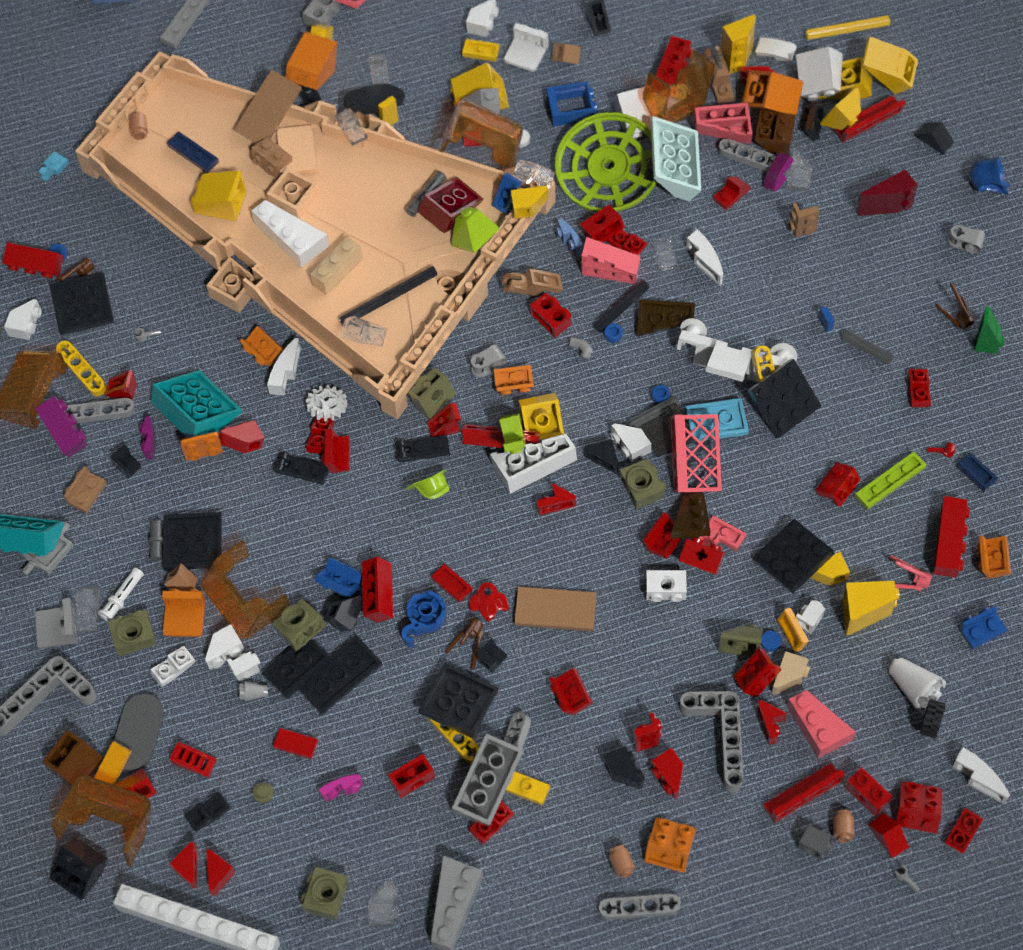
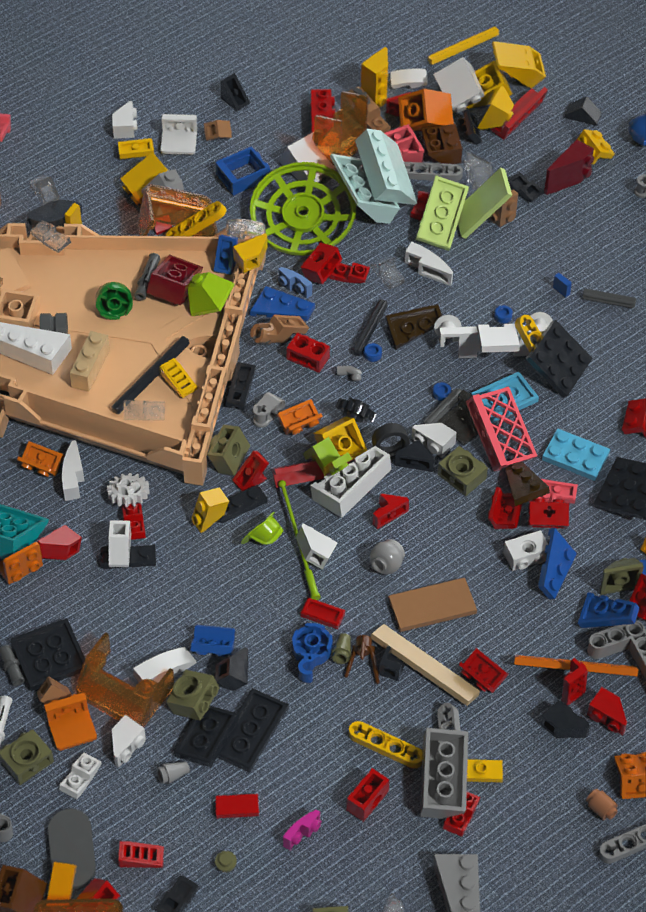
camera: 25 degrees left, 10 degrees down
(244, 666) = (153, 751): white brick -> none
(292, 455) = (119, 543): none -> white slope
(292, 586) = (156, 667): none -> white slope
(320, 219) = (55, 323): none -> dark grey wheel
(336, 452) = (159, 530): red bracket -> none
(377, 589) = (256, 638): red brick -> none
(383, 210) = (114, 300): none -> green cylinder
(389, 446) = (209, 508): none -> yellow slope
(409, 296) = (172, 368): none -> yellow slope
(452, 625) = (342, 650): none -> olive cone
(455, 539) = (308, 573): none -> lime piece
(458, 700) = (381, 712): black plate -> none
(470, 516) = (315, 546): none -> white slope
(474, 329) = (241, 385): none -> black plate
(488, 603) = (366, 620): red plate -> none
(514, 144) = (211, 213): none -> yellow beam
(522, 667) = (425, 665): none -> tan tile
(531, 548) = (387, 556): none -> light grey piece
(547, 255) = (275, 302): none -> blue wing
(566, 390) = (356, 409): none -> black gear
(585, 423) = (386, 431): none -> black tyre
(609, 262) = (342, 292): coral wedge -> none
(666, 719) = (565, 664): none -> orange tile
(687, 609) = (558, 562): none -> blue wing
(701, 146) = (385, 168): none -> light aqua slope
(710, 674) = (607, 612): none -> blue wing
(741, 207) = (442, 213): none -> yellowish green tile
(756, 331) = (503, 314): none -> blue tile
(760, 501) = (576, 454): none -> medium azure plate
(775, 175) = (460, 170): magenta slope -> none
(782, 210) = (484, 202): none -> yellowish green tile
(838, 202) = (527, 190): none -> black slope
(928, 176) = (595, 140): none -> yellow bracket

